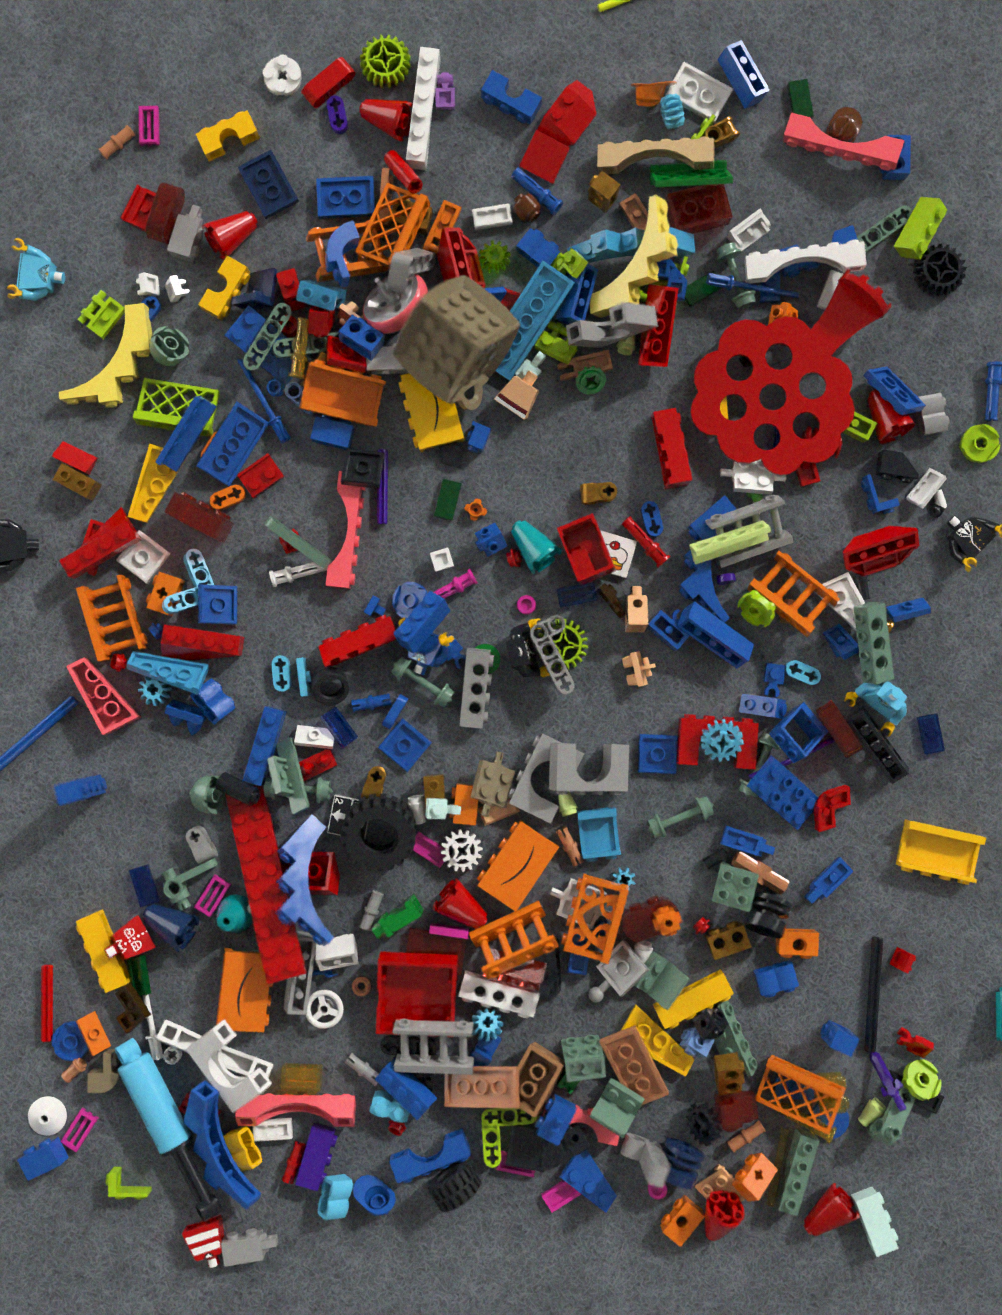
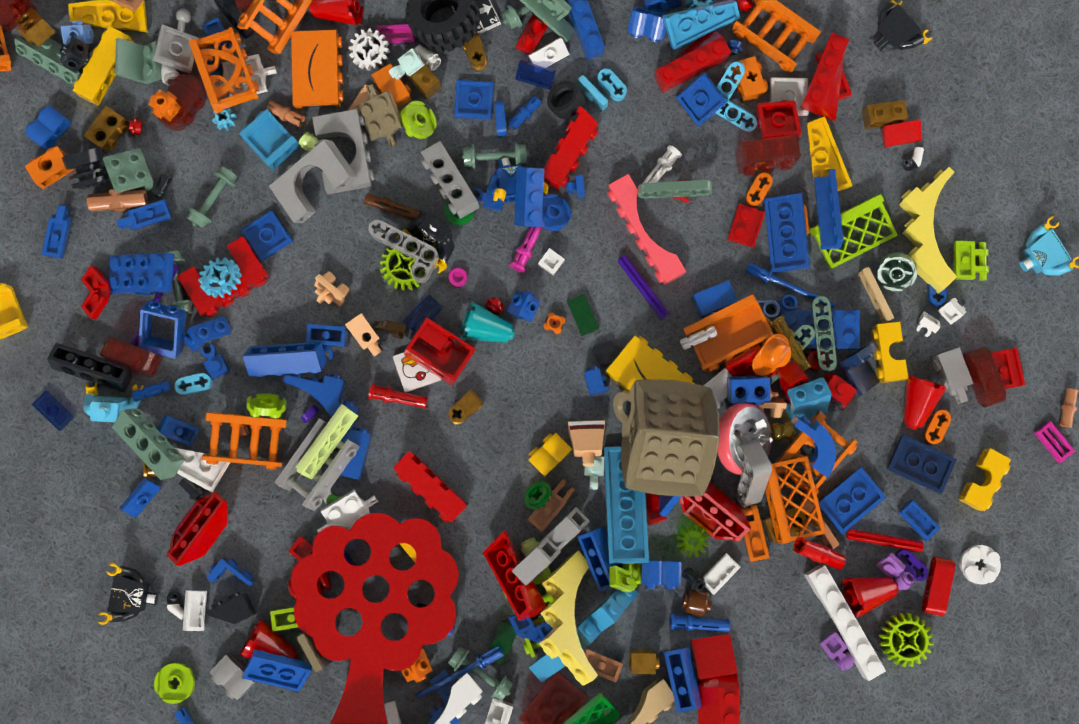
camera: 145 degrees right, 5 degrees down
(82, 427) = (915, 161): none -> arm
(168, 539) = (778, 119): none -> red plate
(200, 342) = (875, 295): none -> tan tile
(232, 204) = (933, 424): none -> orange beam
(304, 143) = (919, 520): none -> blue plate
(321, 347) = (772, 355): none -> orange piece
(342, 148) = (885, 540): none -> red axle
(352, 122) = (893, 567): none -> medium lavender plate
(358, 289) = (782, 431): none -> clear yellow wheel
(362, 468) = (668, 286): black tile -> none
(369, 410) = (698, 337): none -> white axle
(466, 767) = (412, 126): none -> lime plate
(516, 226) = (697, 583): none -> black pin
(523, 107) = (762, 686): blue arch -> none
(526, 684) = (371, 201): none -> reddish brown pin
(554, 346) = (589, 502): lime plate -> none
(557, 406) = (550, 454): none -> yellow brick
(582, 155) = (683, 680): none -> blue brick
(647, 520) = (403, 423): blue beam -> none
(841, 690) = (150, 391): none -> blue axle
(858, 380) = (315, 658): none -> dark tan tile

